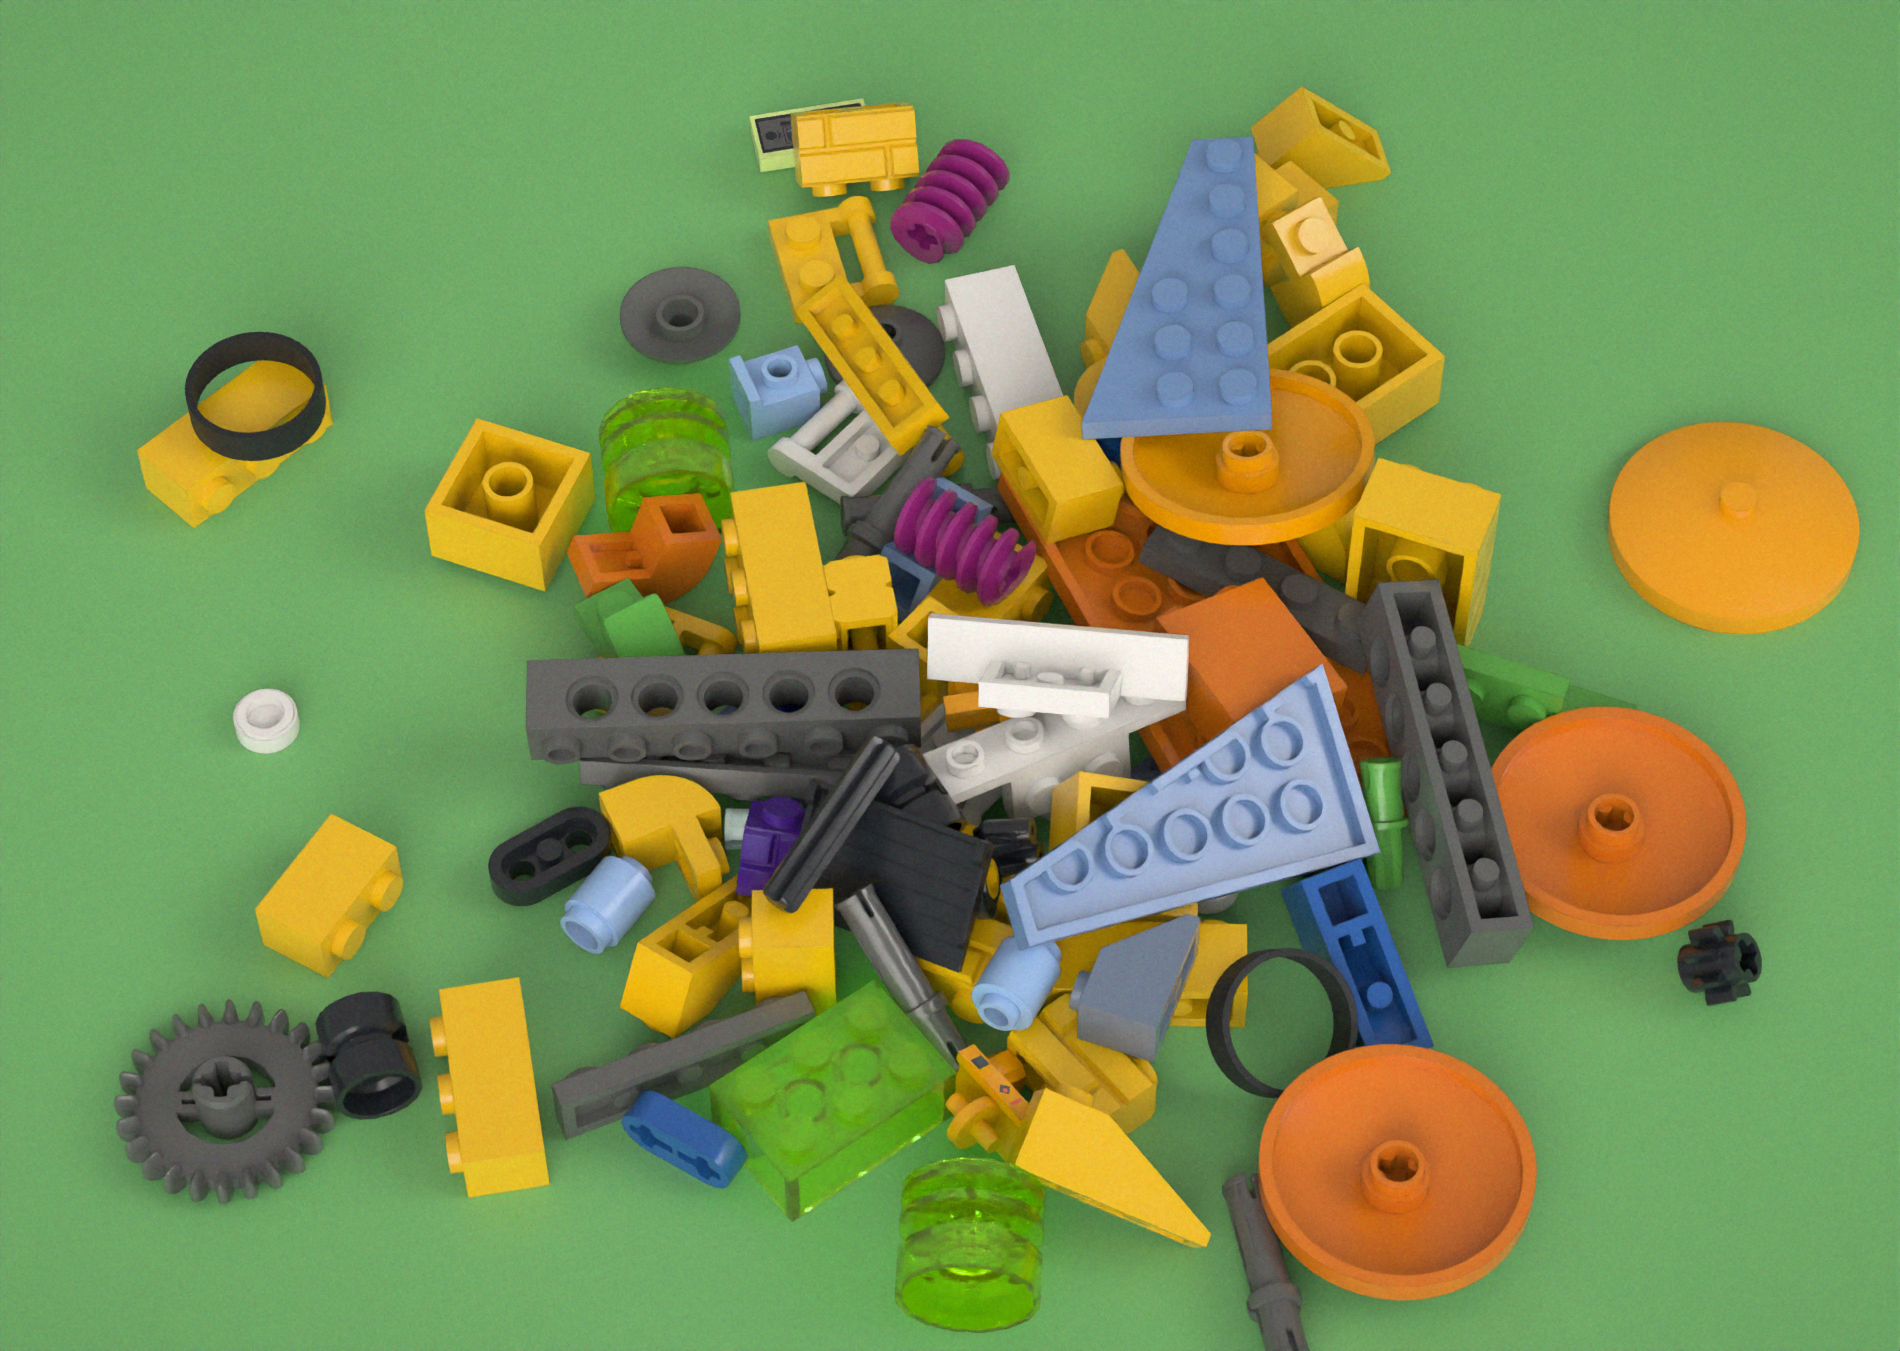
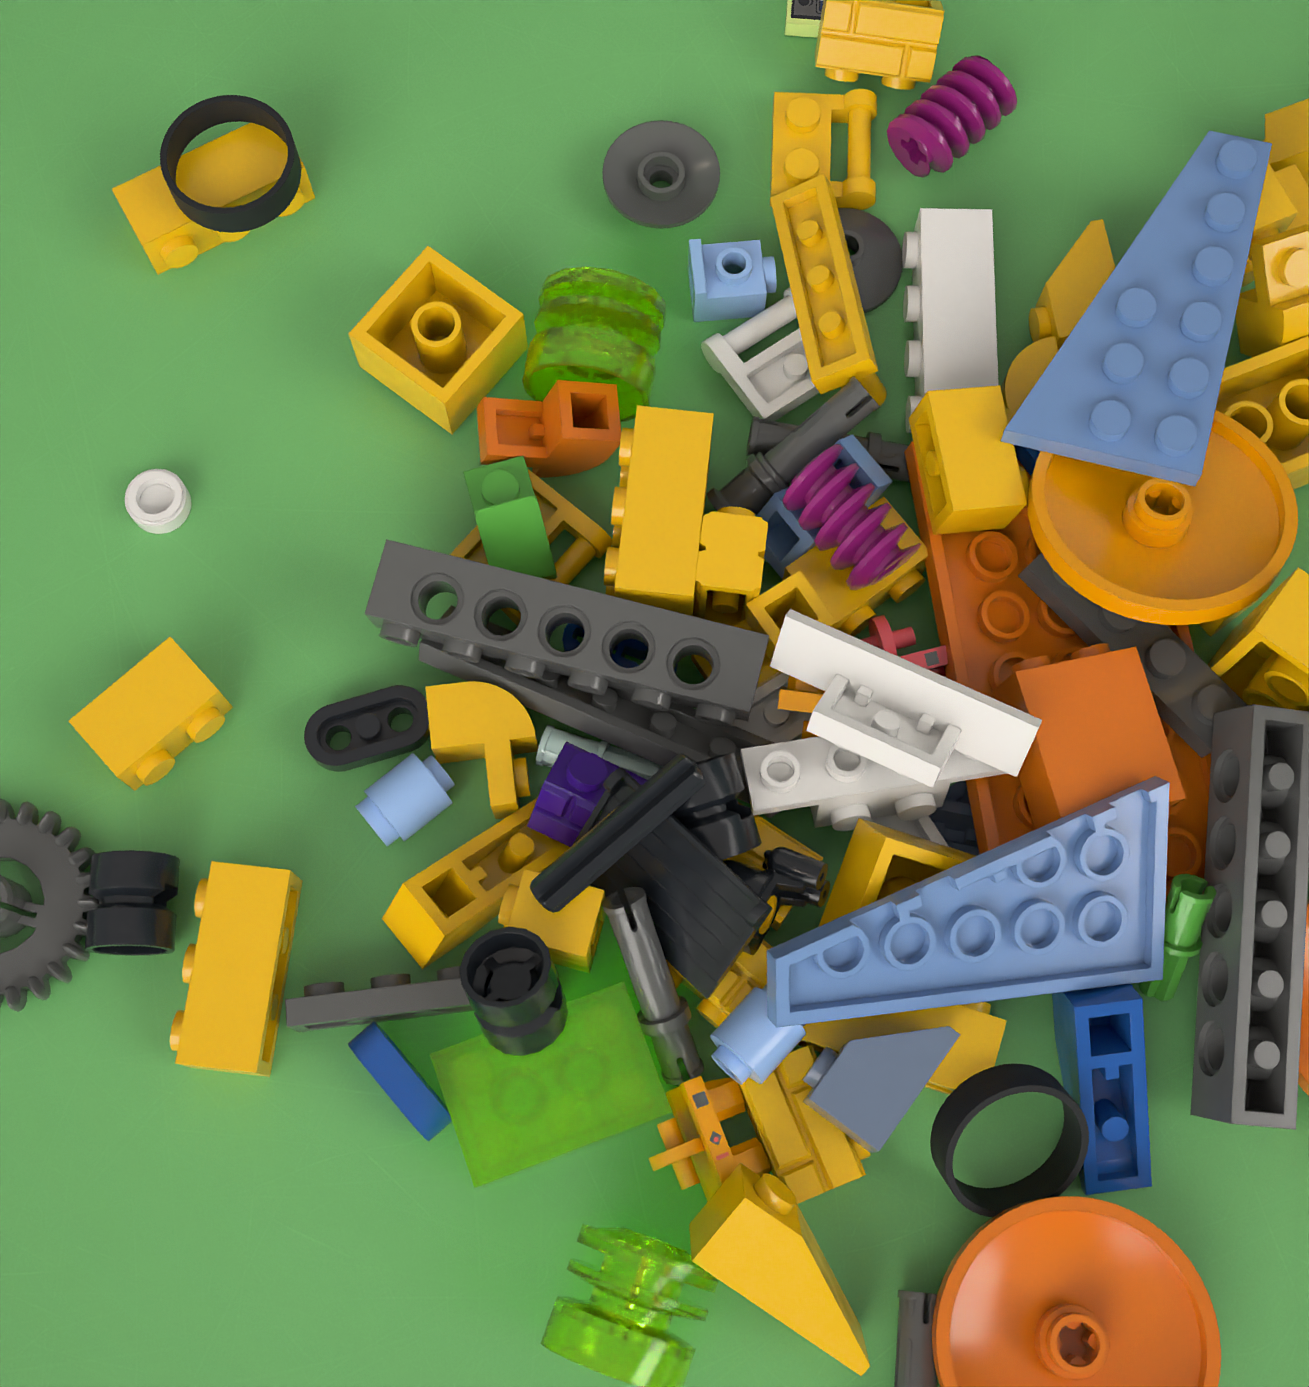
camera: 15 degrees right, 20 degrees up
(776, 992) = (514, 990): none -> black wheel

